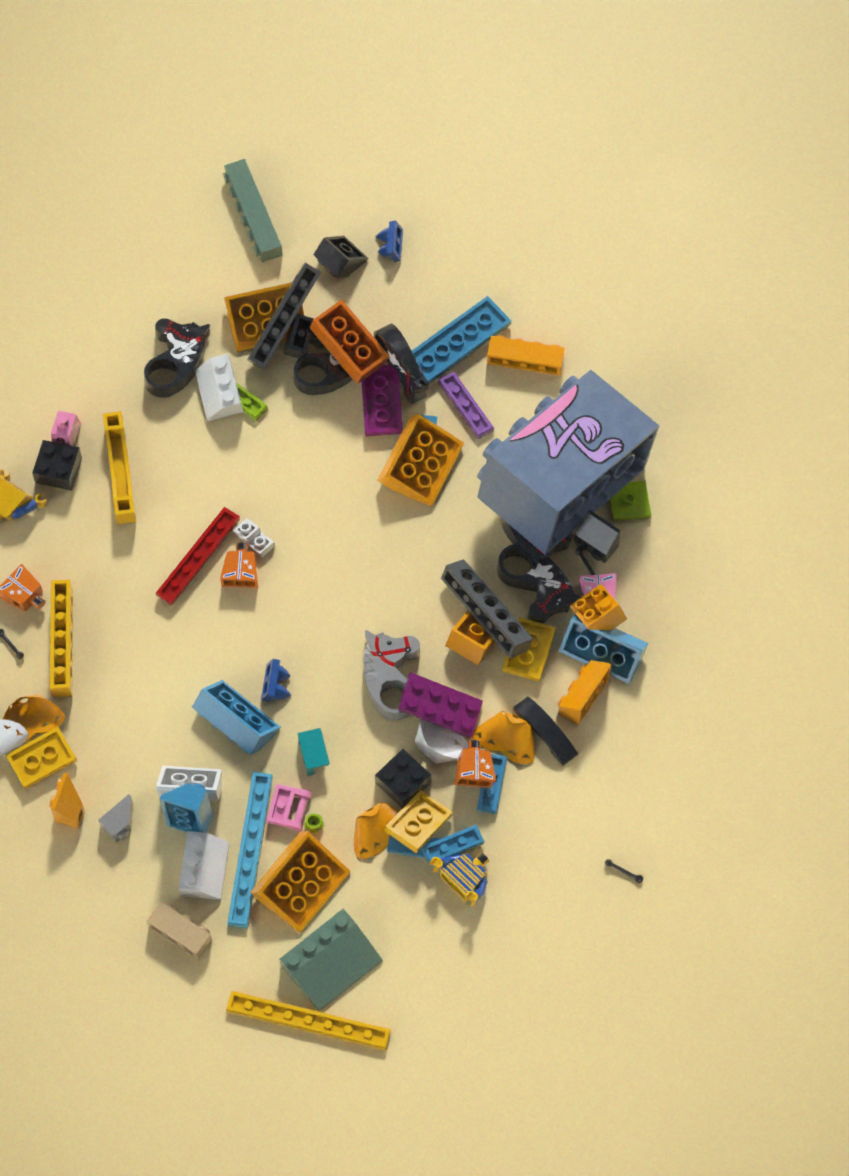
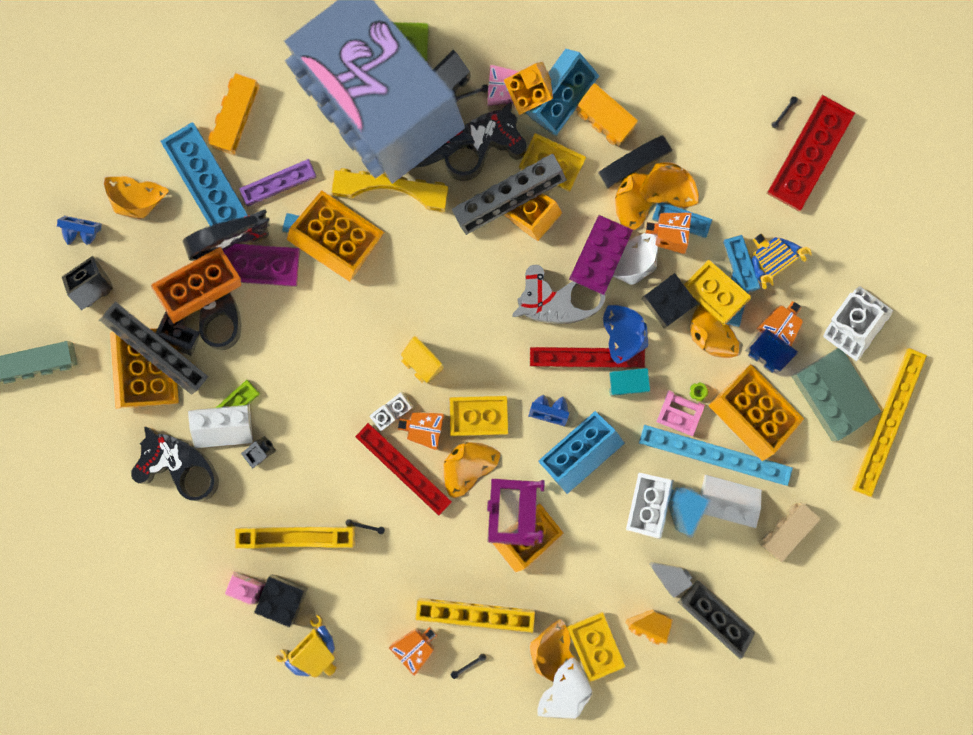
camera: 80 degrees left, 20 degrees up
(80, 869) = (717, 619): none -> dark grey slope
(135, 546) = (380, 530): none -> black hinge
(144, 678) = (522, 556): none -> light orange slope
(167, 656) = (513, 512): none -> magenta piece
(199, 425) = (258, 451): none -> bracket
(209, 612) = (468, 466): none -> light orange piece
(260, 616) = (478, 415): none -> yellow plate
(308, 554) = (421, 360): none -> yellow slope
(333, 710) = (581, 358): none -> red plate
(361, 744) = (627, 332): none -> blue piece
(365, 883) = (770, 351): none -> clear blue slope
(395, 894) = (783, 322): none -> orange torso
(409, 970) = (857, 323): none -> white slope
(427, 283) = (134, 199): none -> light orange piece
(474, 538) = (350, 184): none -> yellow arch
(526, 762) = (669, 184): none -> light orange piece
(583, 900) = (810, 153): none -> red plate

